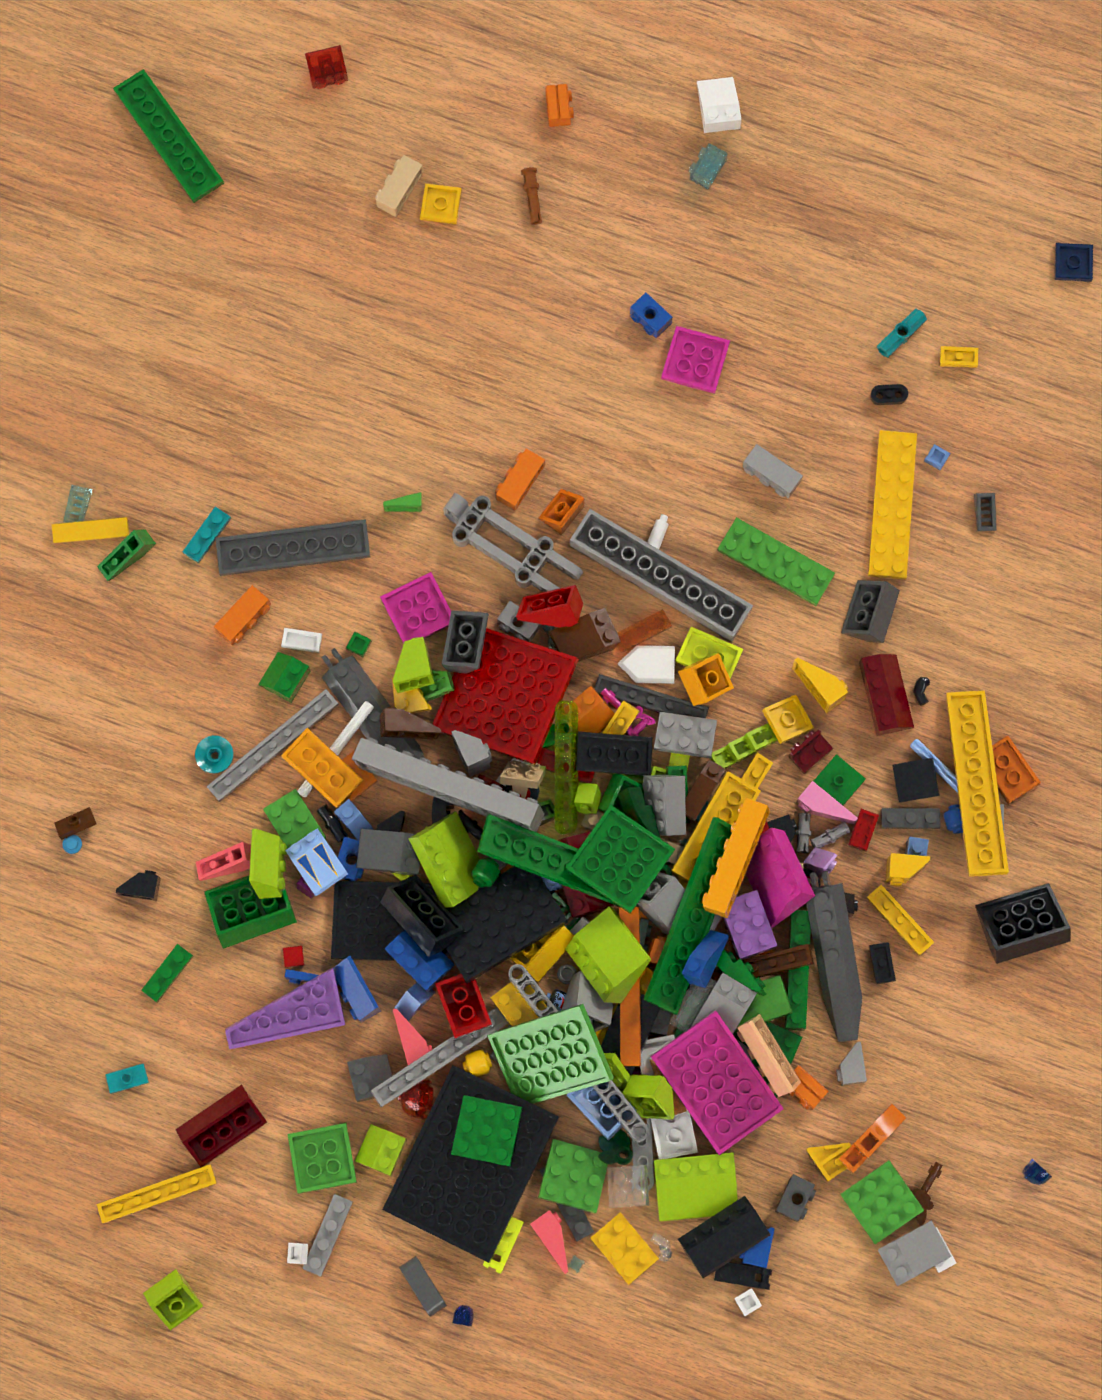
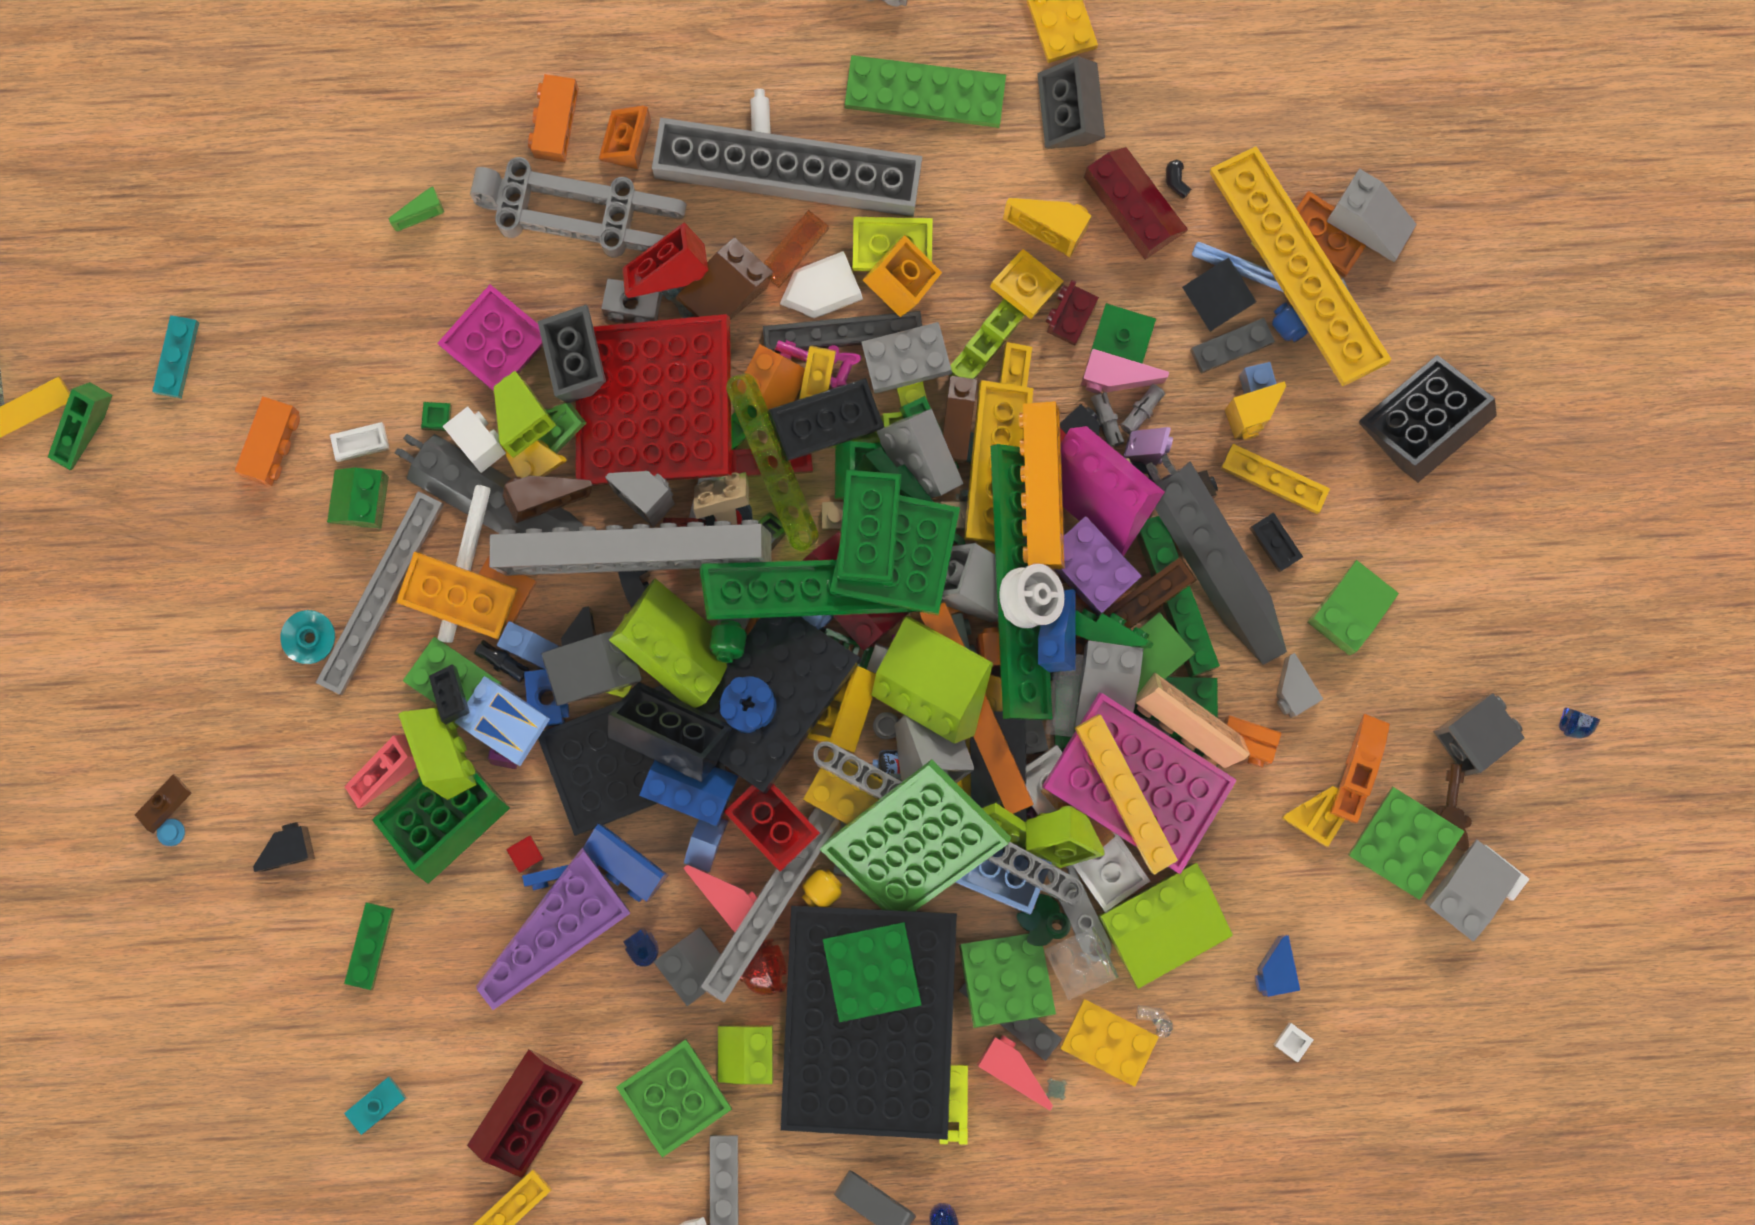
camera: 30 degrees left, 5 degrees up
(289, 830) = (449, 694): none -> black plate
(292, 547) = (295, 327): dark grey plate -> none
(343, 1050) = (642, 948): none -> clear blue piece
(377, 670) = (474, 439): none -> white brick
(471, 826) = (682, 589): black pin -> none
(480, 908) = (741, 690): none -> blue plate
(587, 798) = (816, 490): lime brick -> none
(609, 836) = (869, 526): none -> green tile
(696, 926) = (1031, 596): none -> white wheel
(704, 1085) = (1126, 794): none -> yellow plate
(724, 1237) = (1230, 975): black slope -> none
(743, 1275) = (1270, 1011): black plate -> none
(787, 1207) = (1287, 871): dark grey brick -> none
(863, 830) = (1181, 384): red plate -> none
(916, 1029) = (1353, 608): none -> bright green slope
(964, 1150) = (1480, 734): none -> dark grey slope
(1043, 771) = (1373, 216): none -> light grey slope

